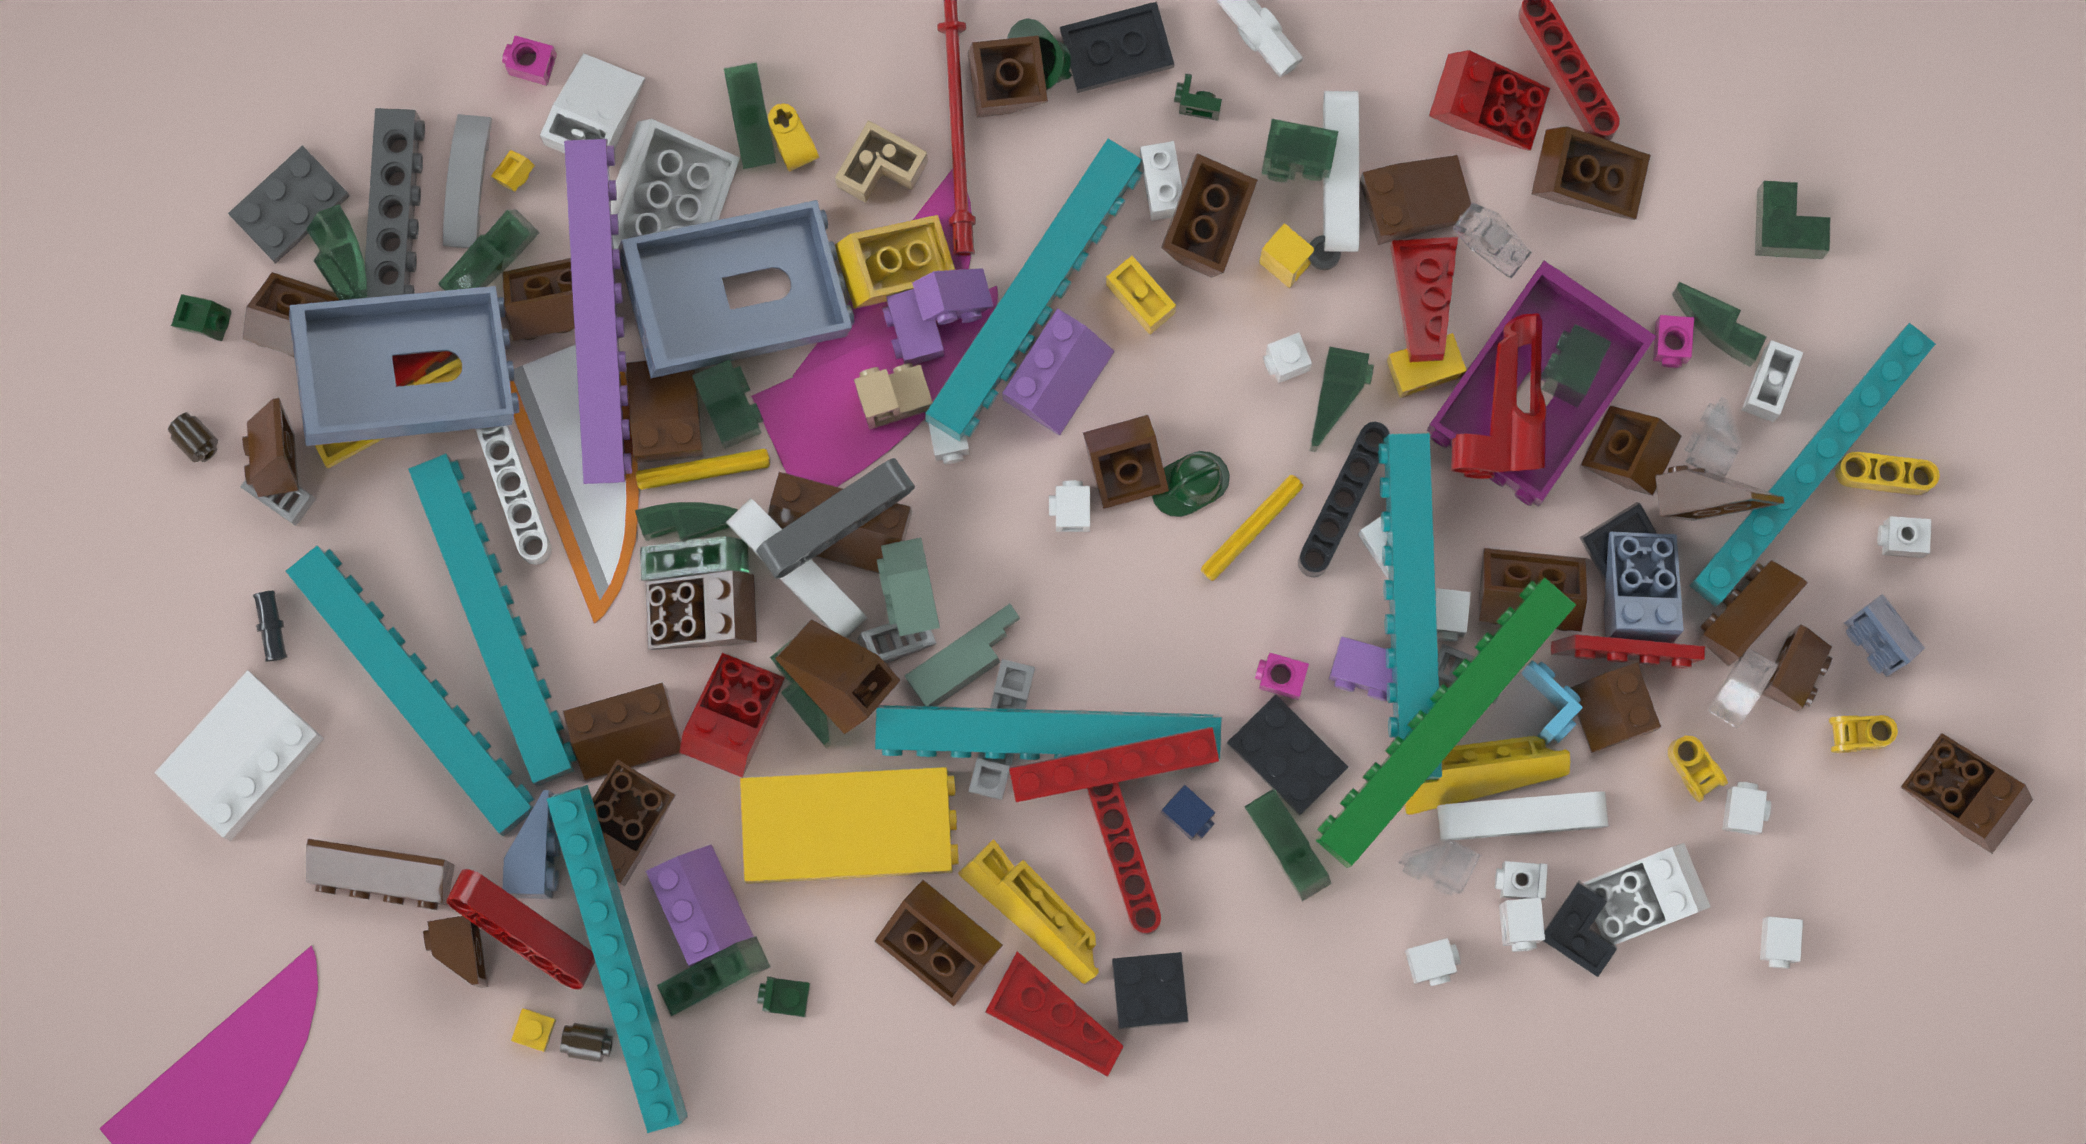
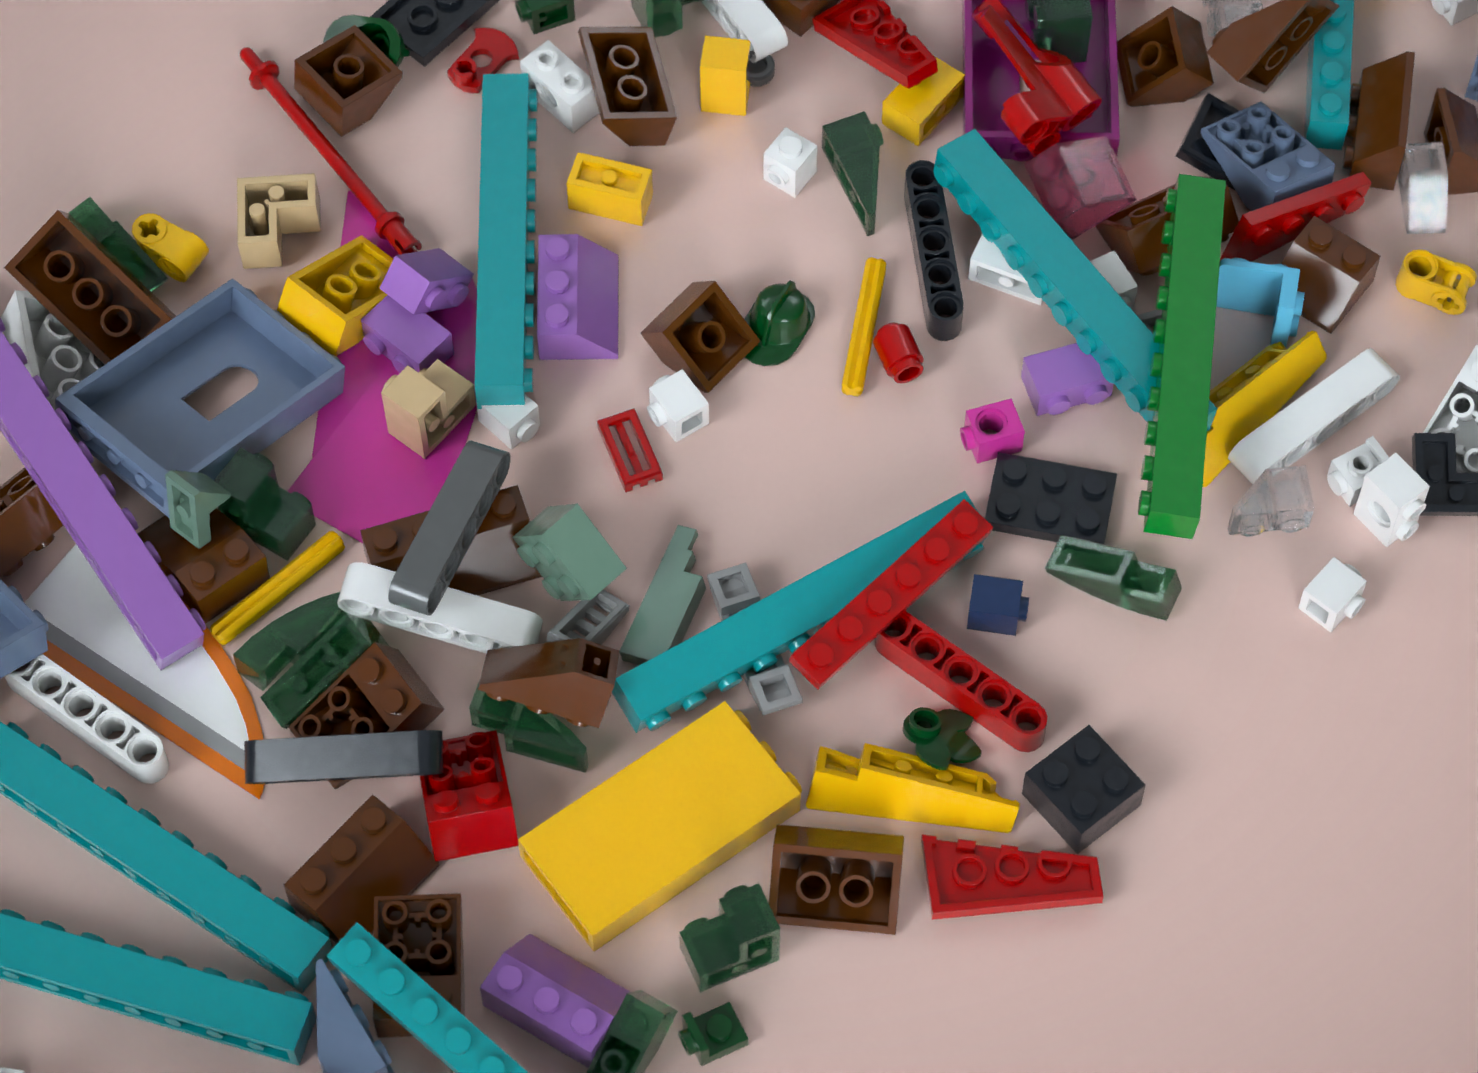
camera: 35 degrees left, 20 degrees down
(660, 641) = (344, 757): none -> beam
(672, 383) = (190, 501): none -> sand green slope
(708, 152) = (87, 288): none -> reddish brown slope
(835, 943) = (735, 941): none -> clear green brick
(1011, 546) = (639, 477): none -> red tile
(1086, 890) = (941, 737): none -> dark green plate
(1143, 110) = (487, 41): none -> red piece
(1259, 567) = (898, 352): none -> red brick
(1486, 519) = (1080, 183): none -> clear pink slope

